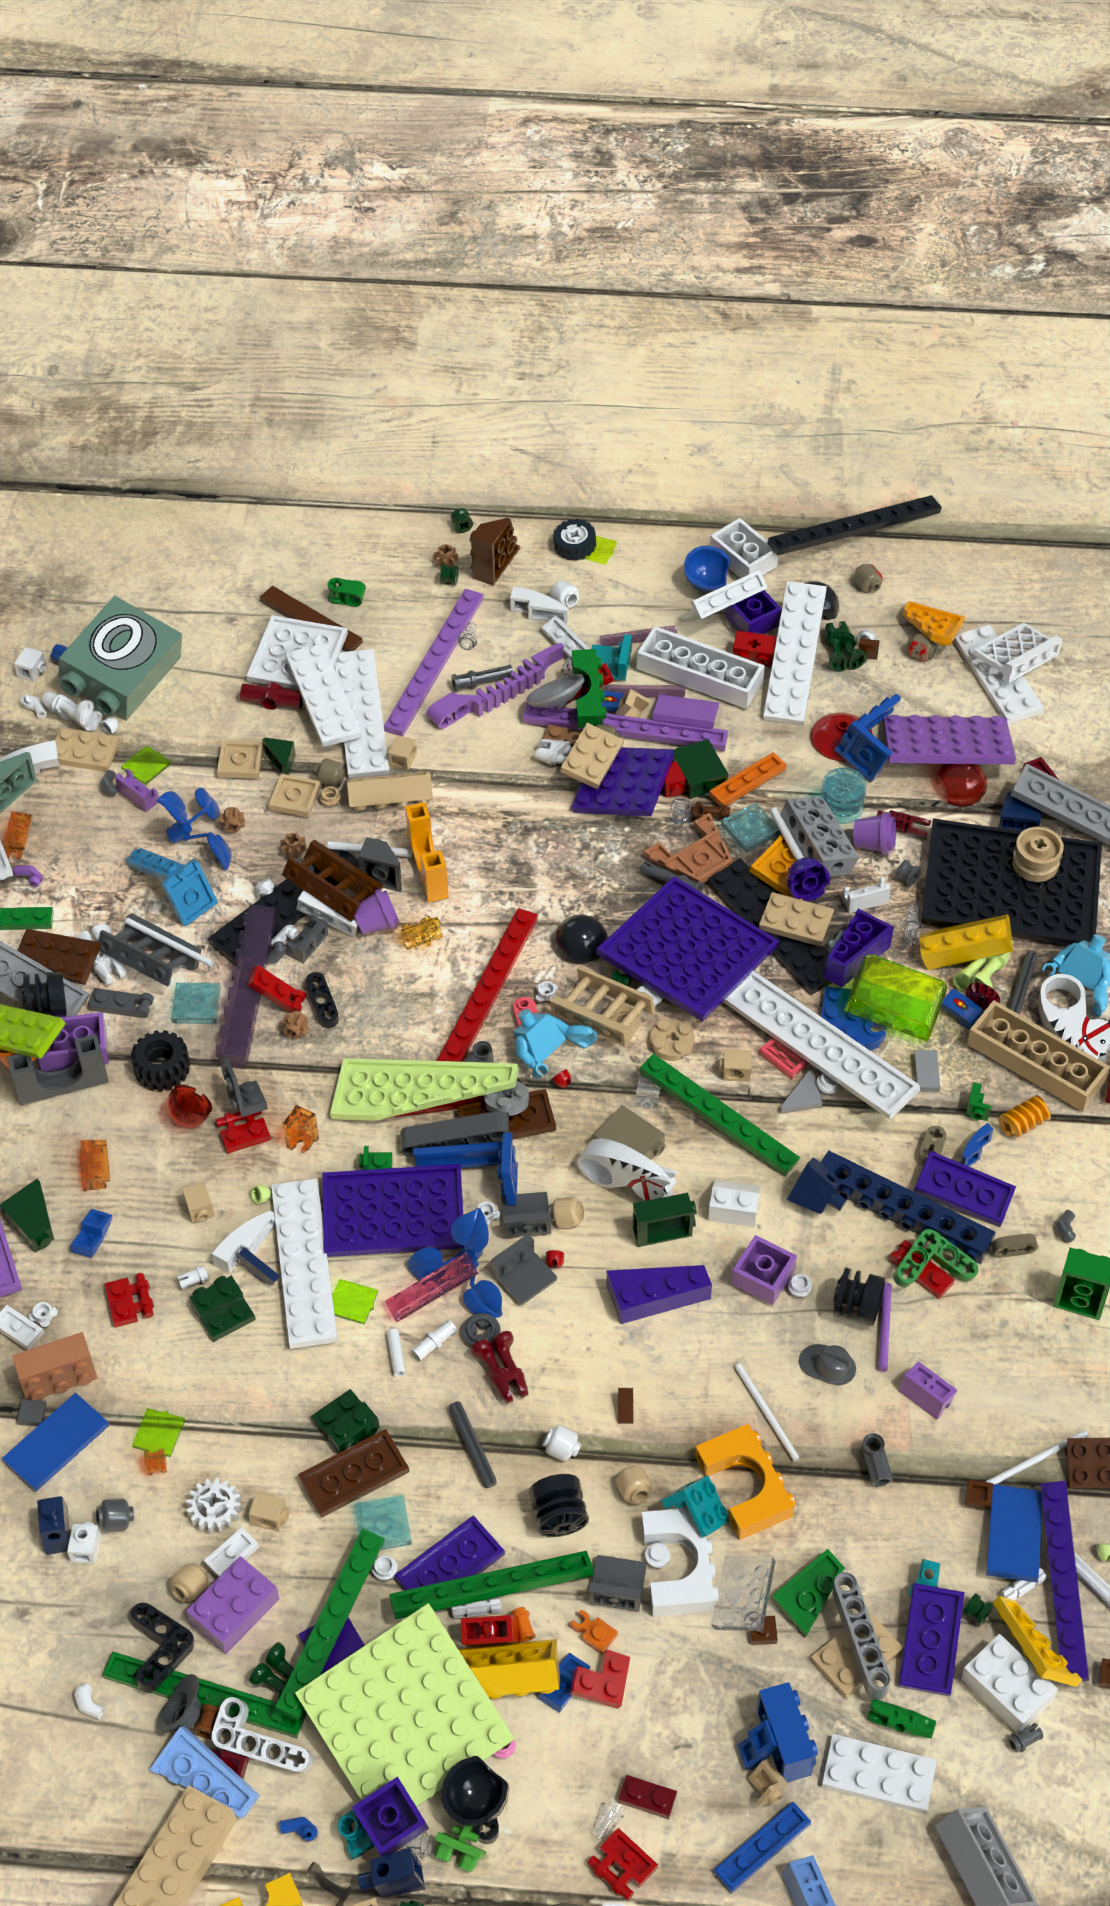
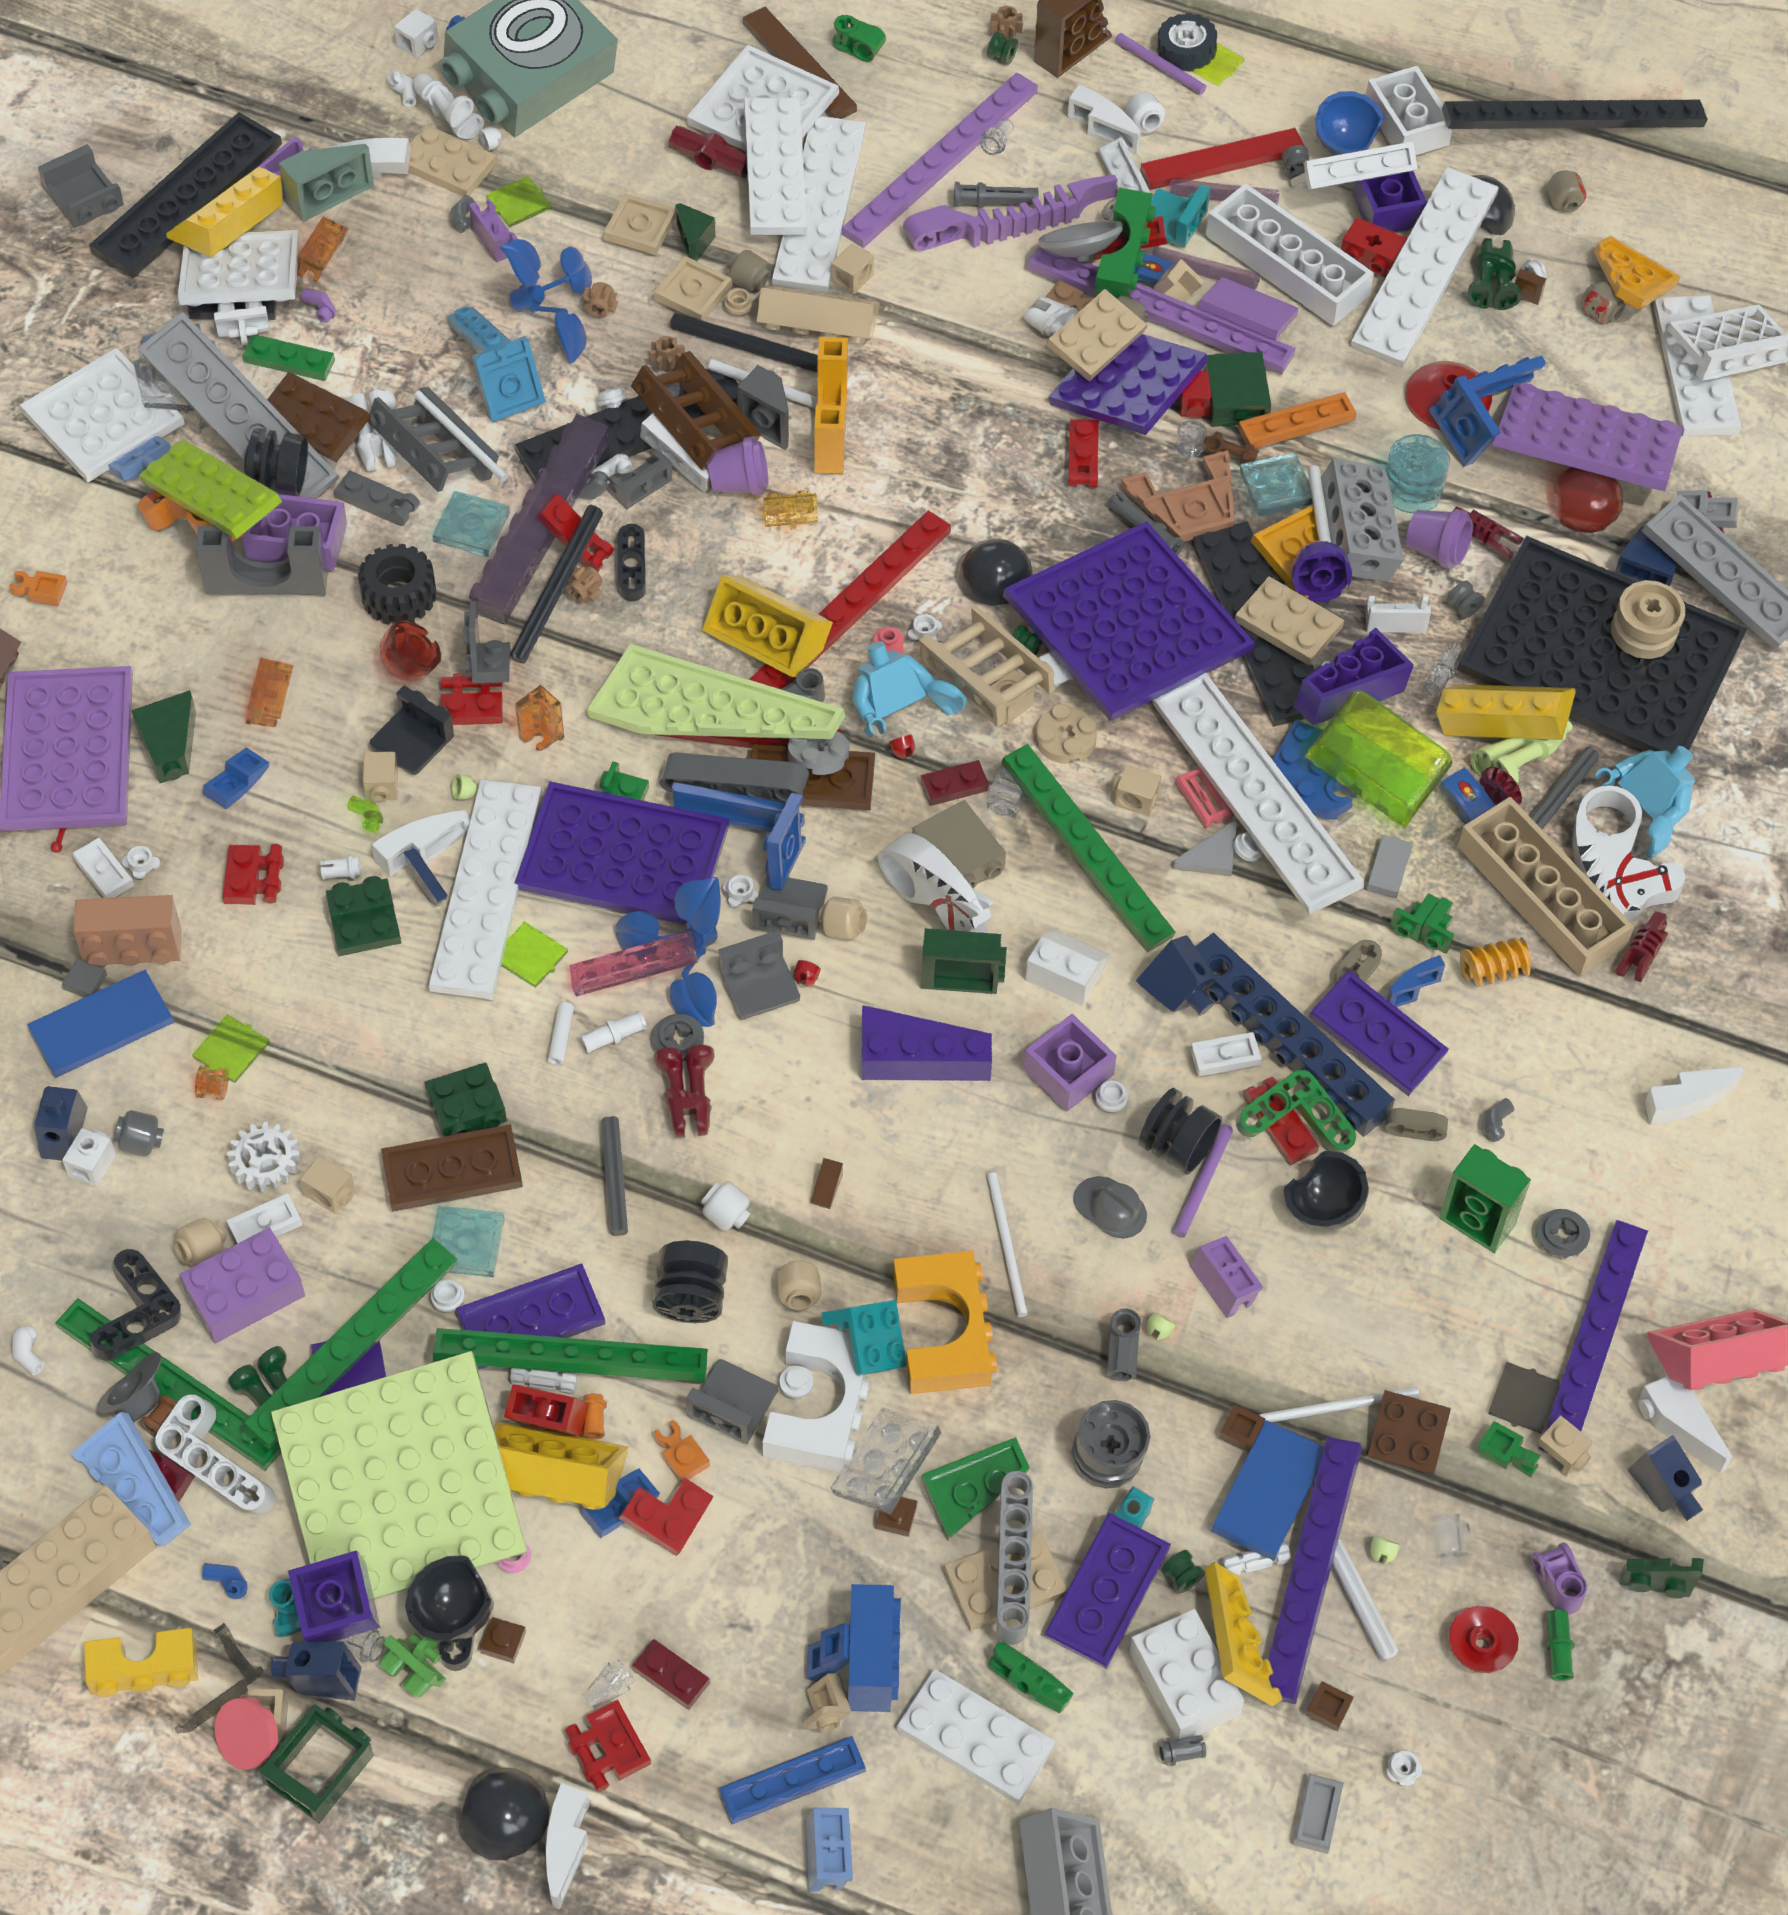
camera: 15 degrees right, 5 degrees up
(198, 1230) = (369, 810): none -> clear neon green arm
(211, 1163) = (414, 731): none -> black bracket
(276, 1030) = (556, 584): none -> black axle
(346, 823) = (745, 342): none -> black axle
(436, 1019) = (766, 625): none -> yellow slope
(518, 1810) = (503, 1640): none -> reddish brown plate
(561, 558) = (1160, 63): none -> medium lavender bar
(607, 1094) = (954, 783): none -> dark red plate
(609, 840) = (1083, 453): none -> red plate
(628, 612) = (1219, 158): none -> red tile
(680, 603) = (1293, 160): none -> dark grey wheel
(867, 1233) = (1225, 1054): none -> white plate
(896, 1437) = (1161, 1324): none -> yellowish green hinge
(896, 1522) = (1112, 1426): none -> dark grey wheel
(958, 1106) = (1411, 924): none -> green bracket
(977, 1310) = (1330, 1193): none -> black cylinder
(1053, 767) = (1720, 511): none -> light grey slope

